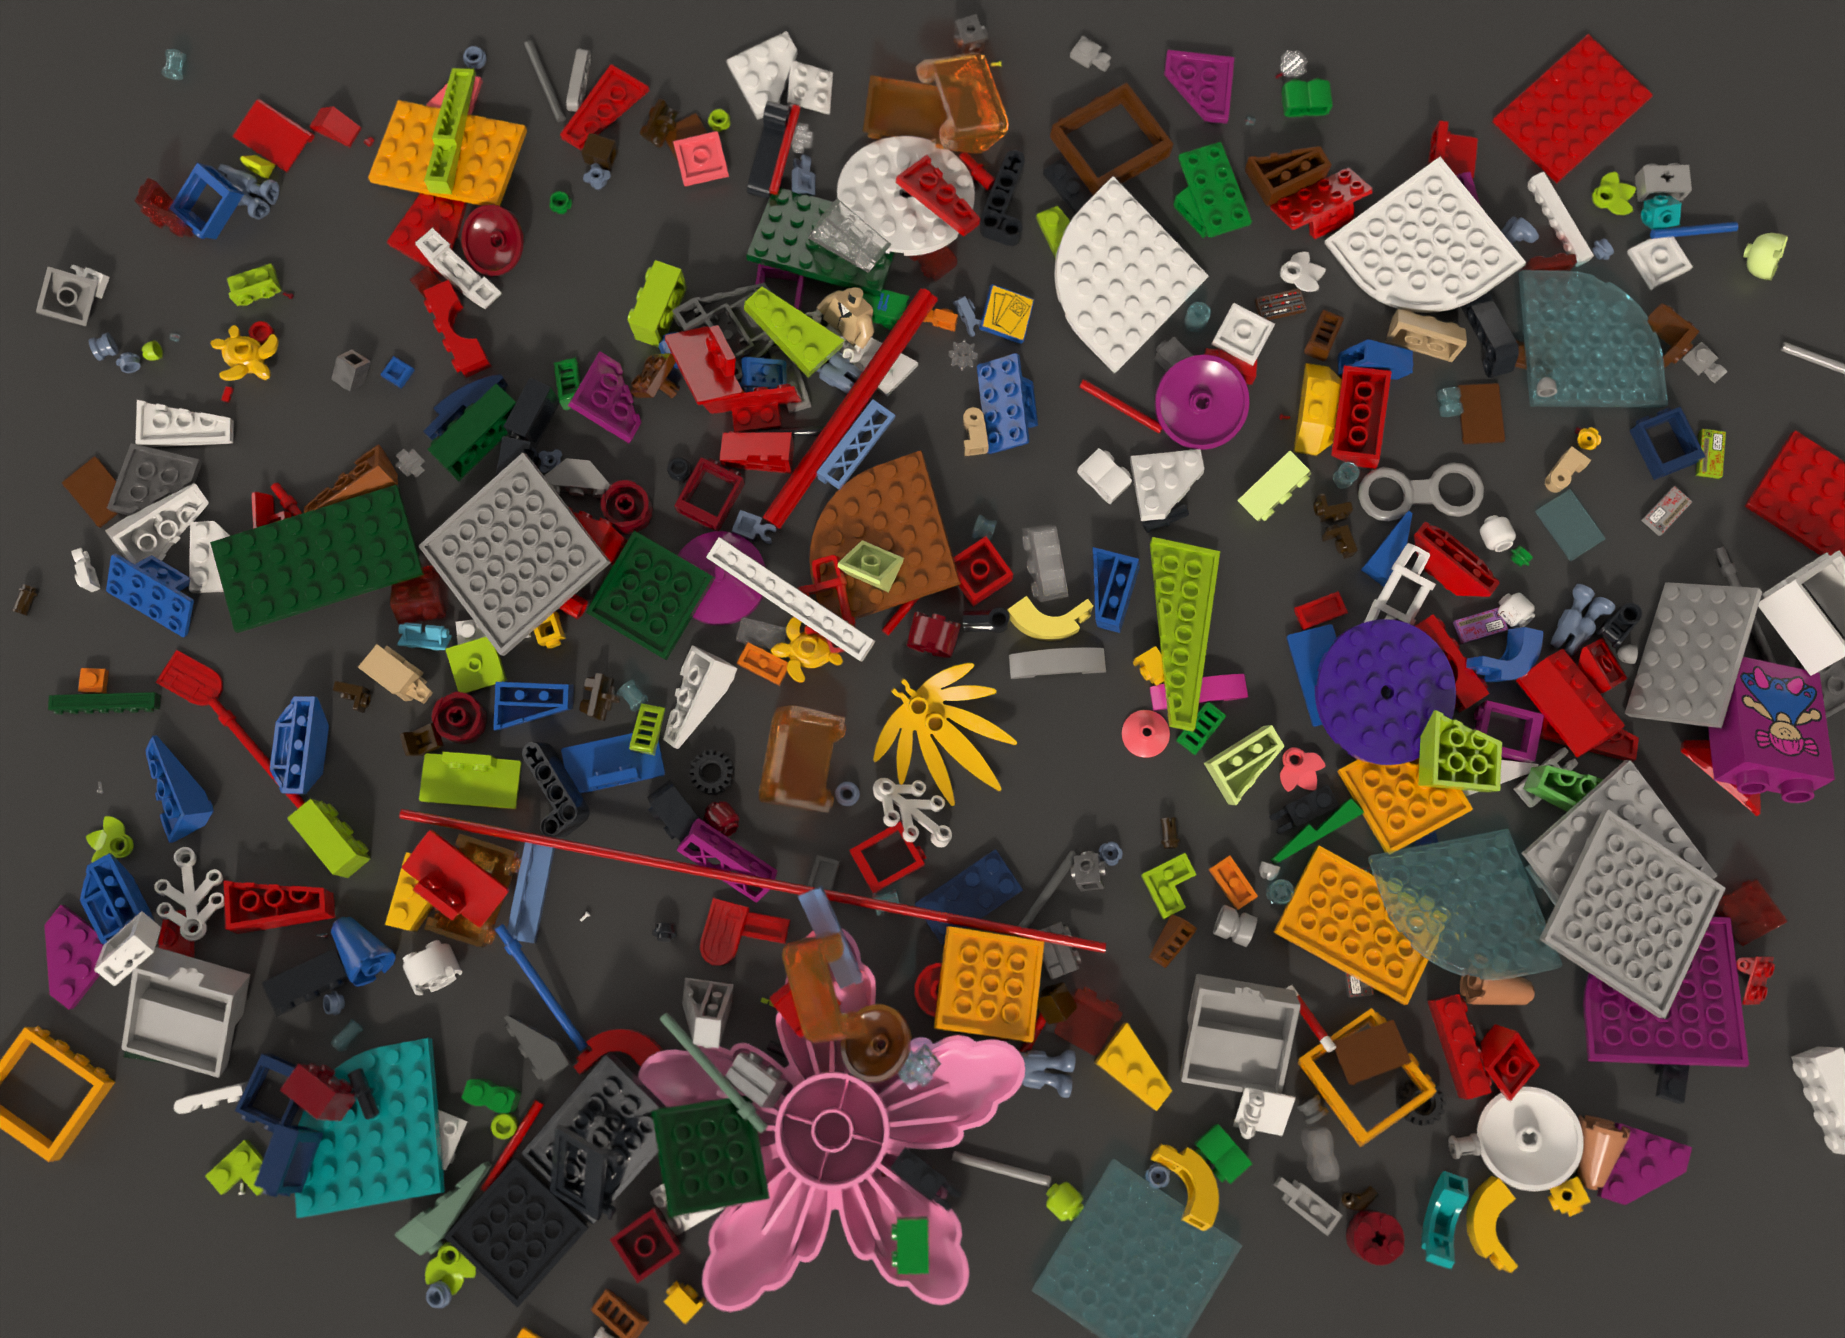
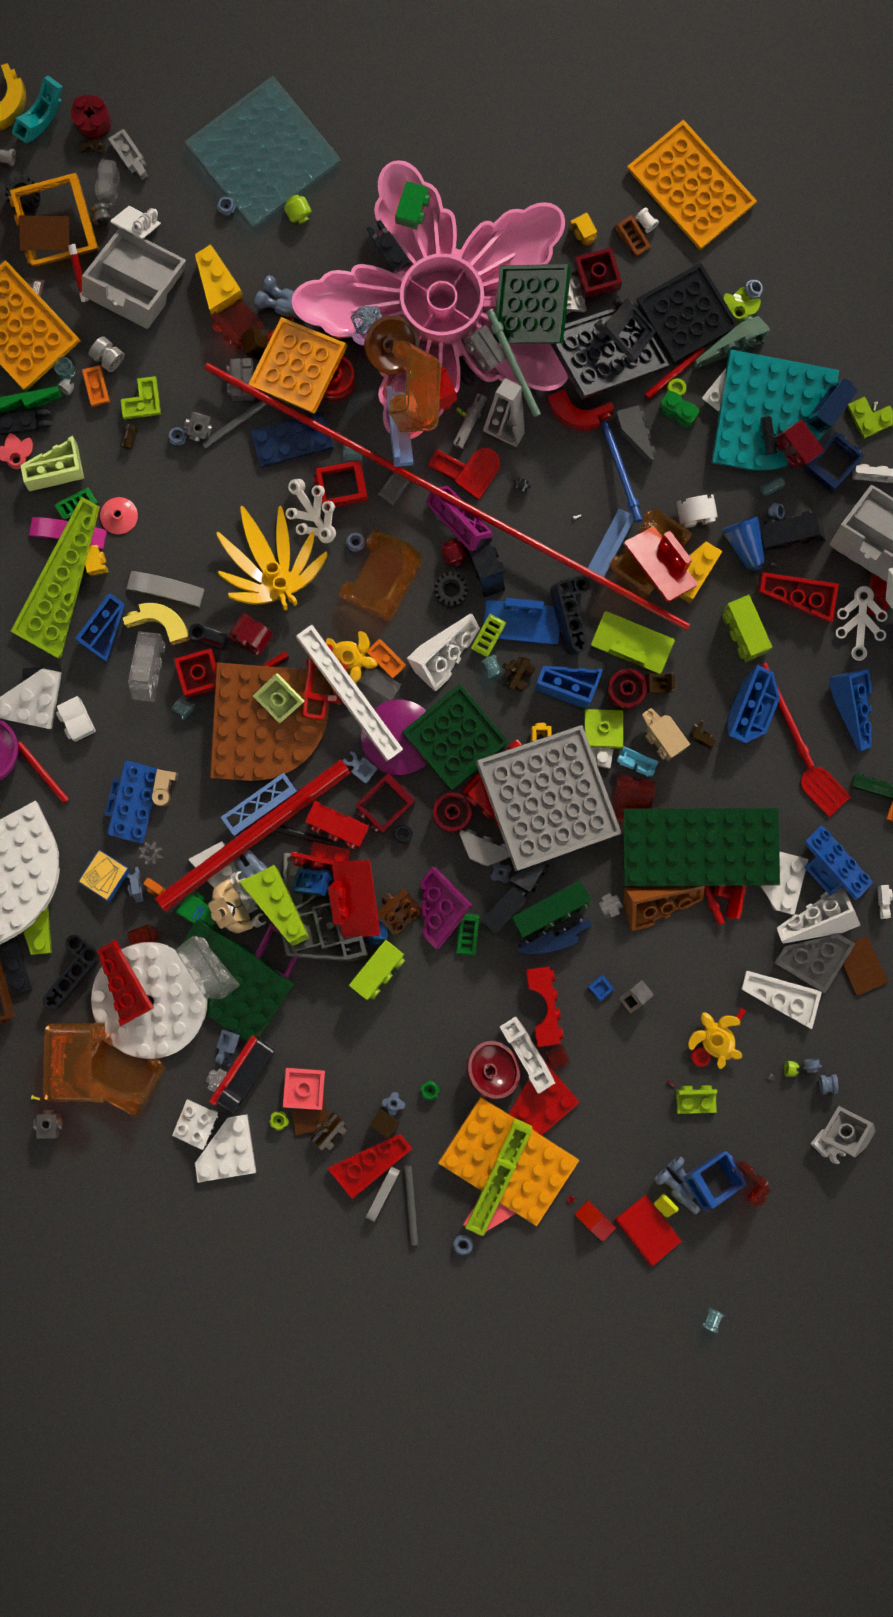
camera: 160 degrees left, 5 degrees up
(754, 993) = (473, 414): none -> light grey pin
(977, 171) = (84, 1005): red axle -> none
(1001, 1168) = (333, 246): light grey bar -> none
(1174, 936) = (155, 360): reddish brown slope -> none
(1199, 1181) = (198, 189): yellow arch -> none
(1222, 1153) = (175, 205): green brick -> none

